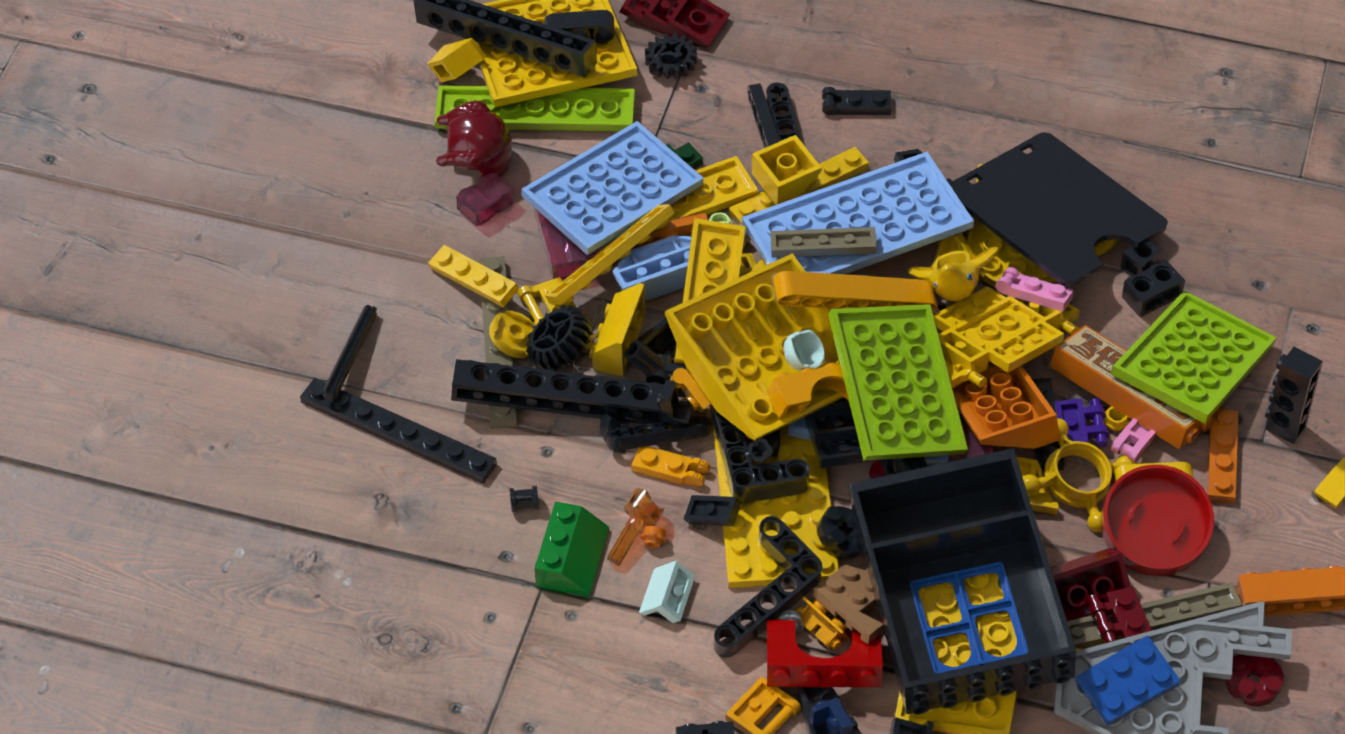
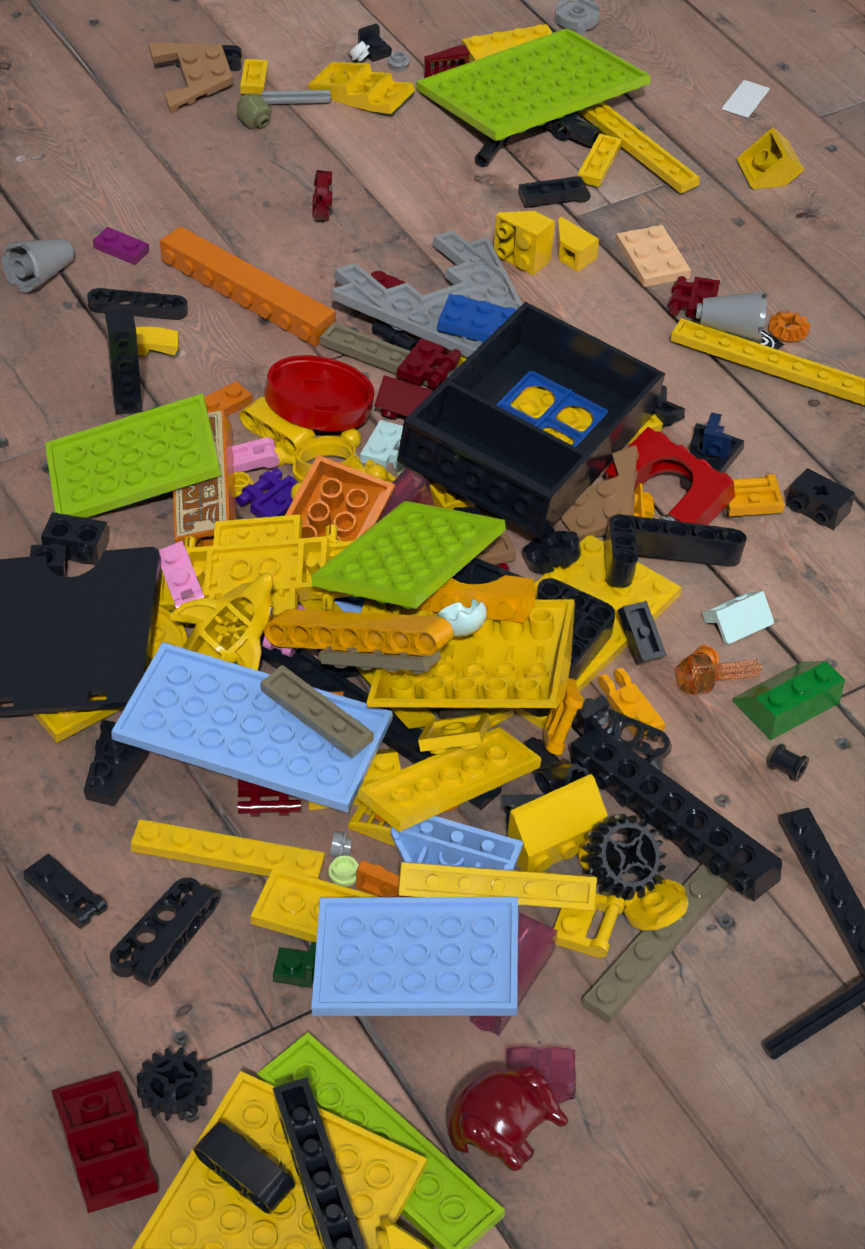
camera: 140 degrees left, 5 degrees down
(473, 276) = (639, 992): yellow plate -> none
(785, 169) = (241, 835): yellow slope -> none
(1069, 535) = (383, 445): none -> light aqua plate

